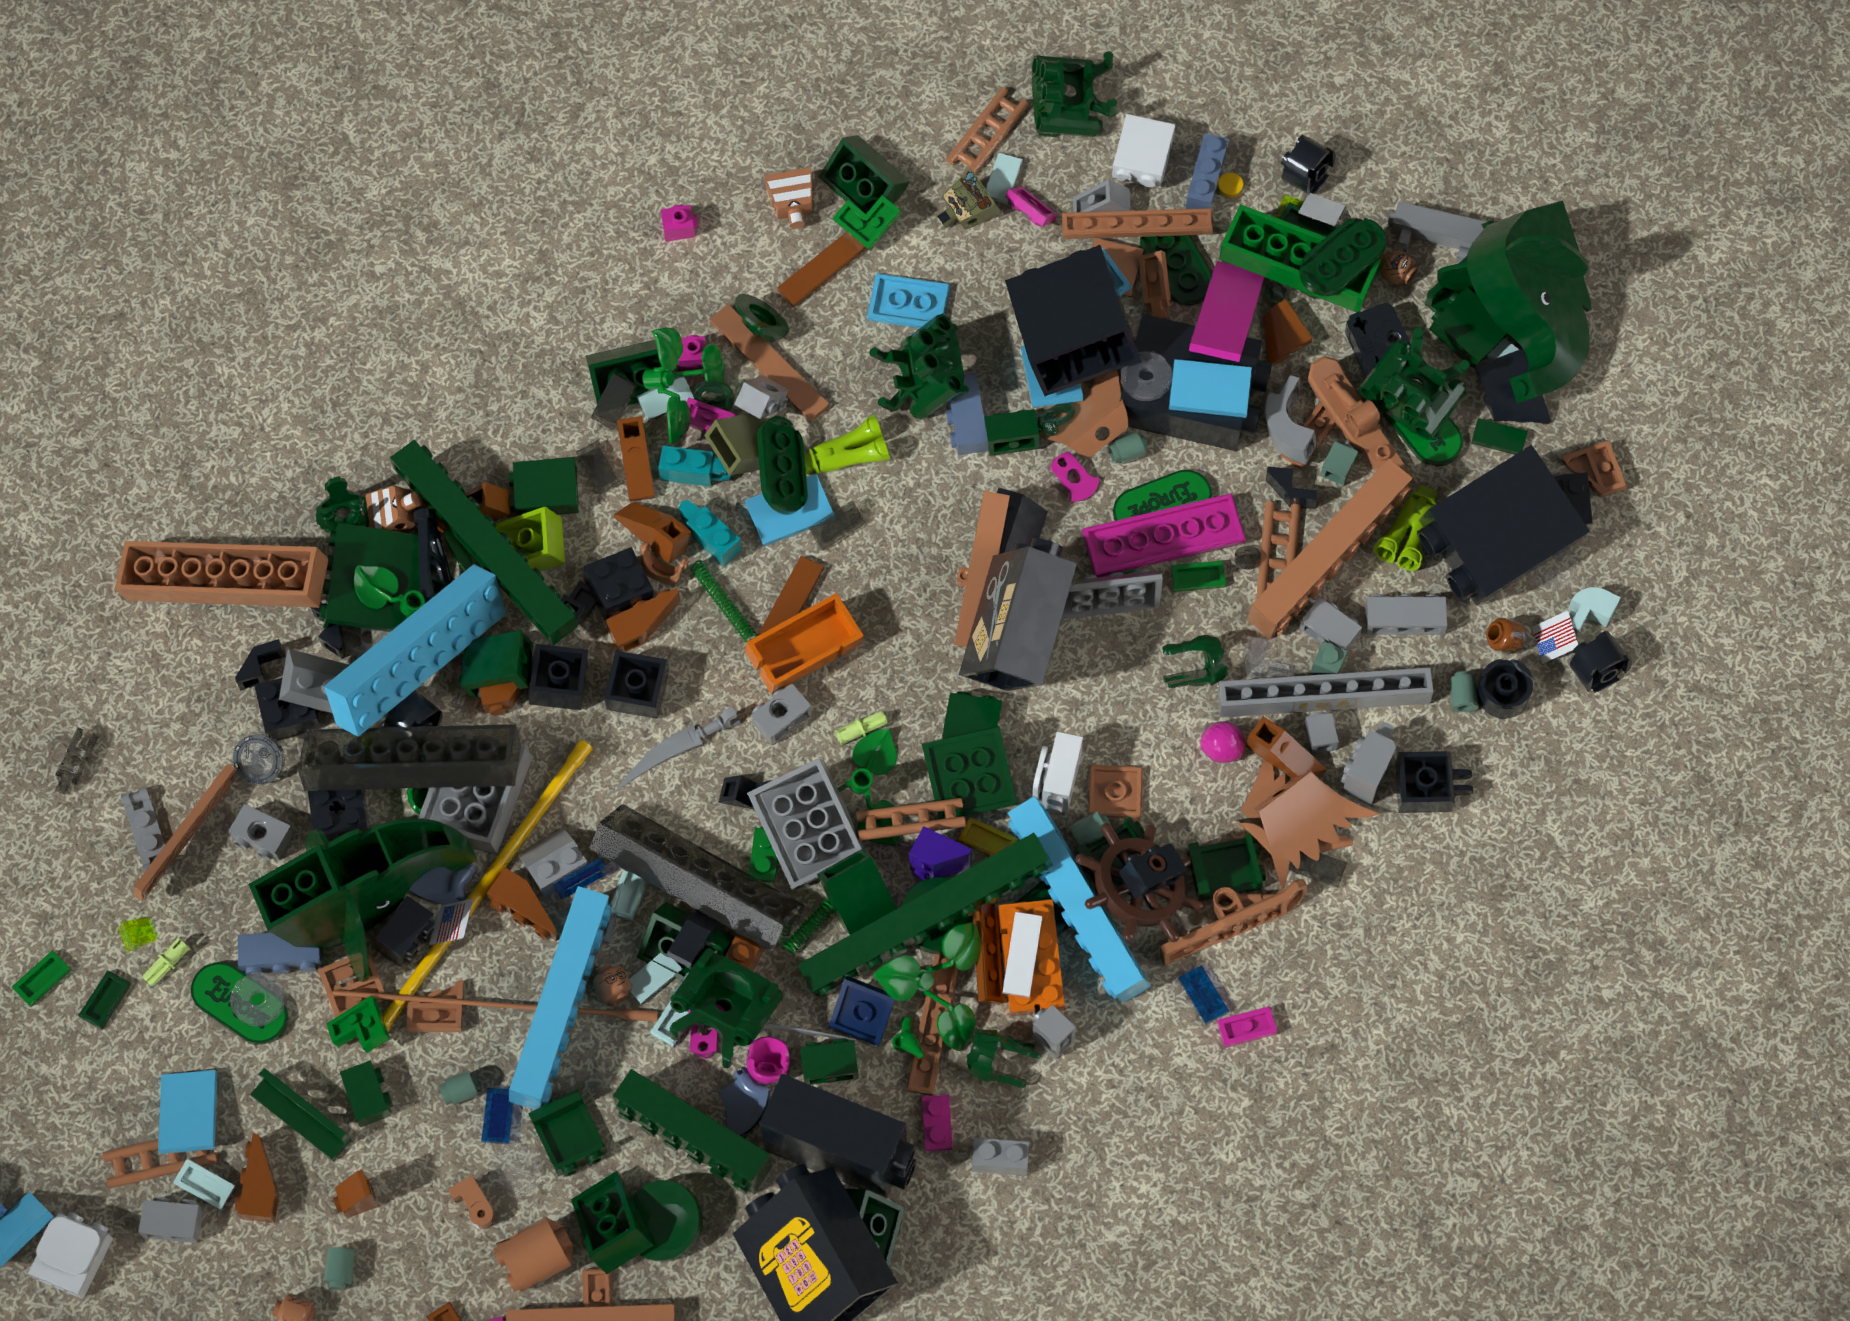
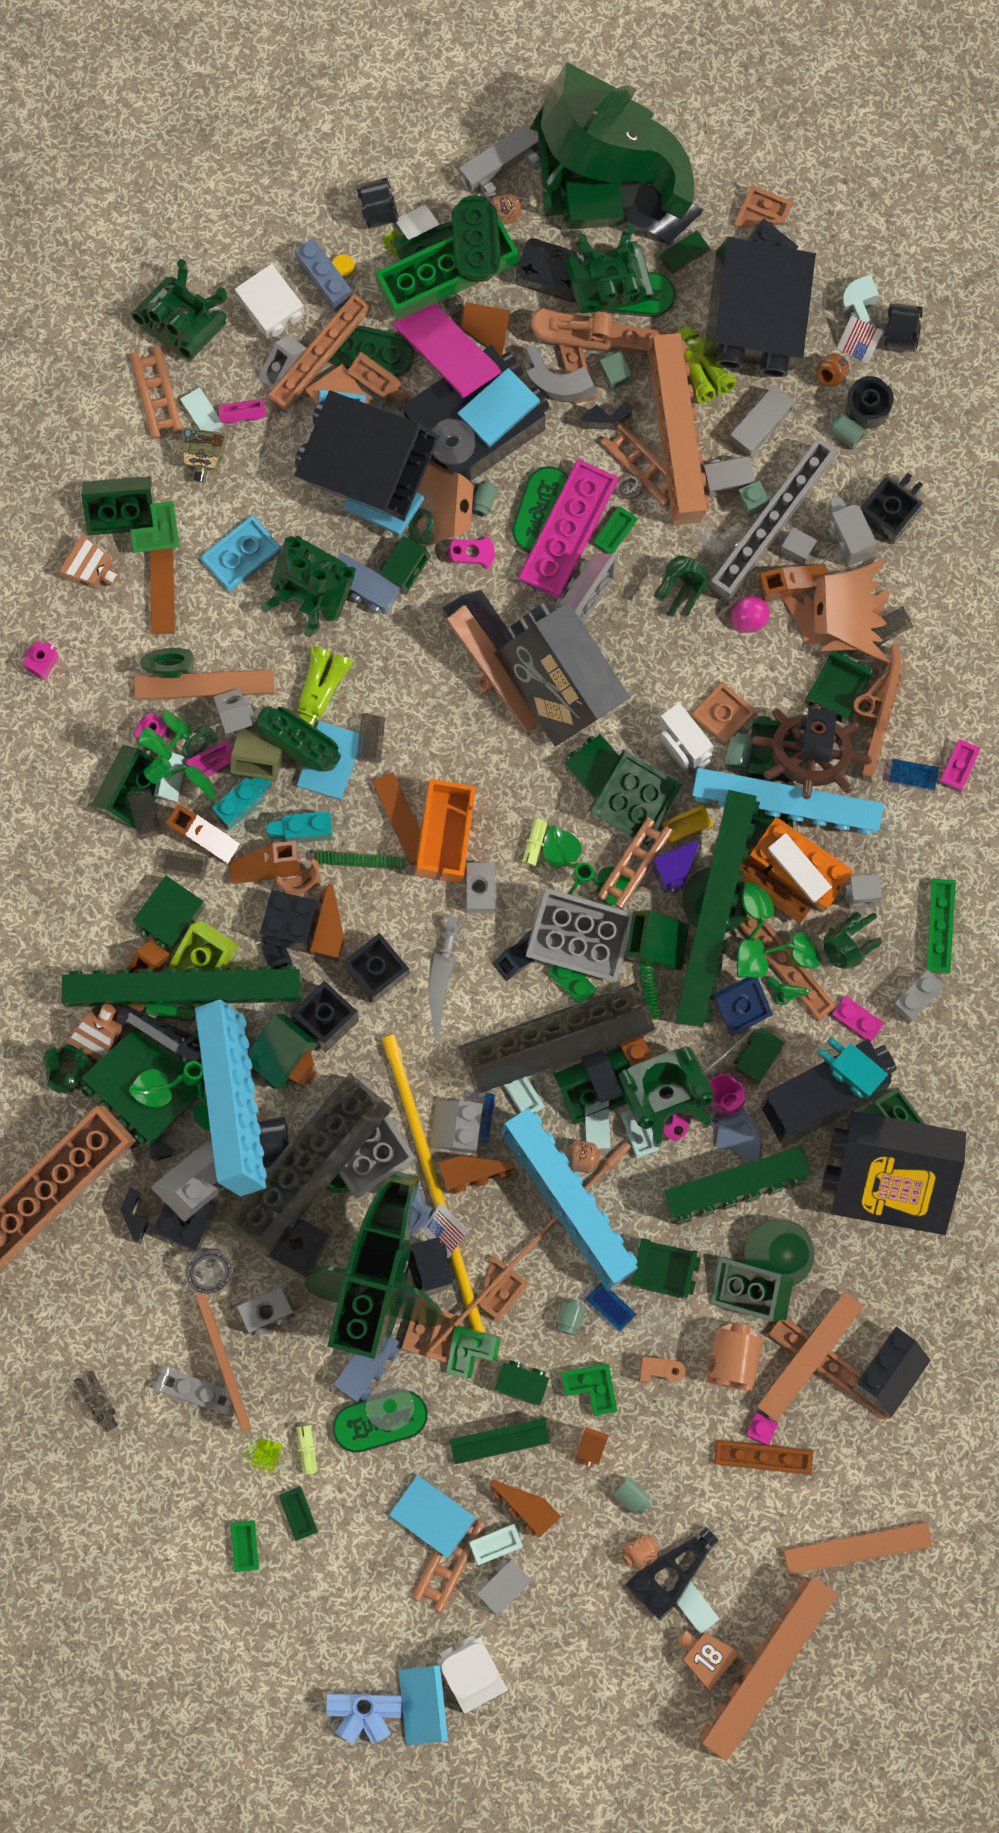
camera: 50 degrees left, 10 degrees up
(418, 1159) = (596, 1382): none -> green plate
(864, 1130) = (854, 1068): none -> teal hinge
(1083, 1127) = (940, 926): none -> green plate

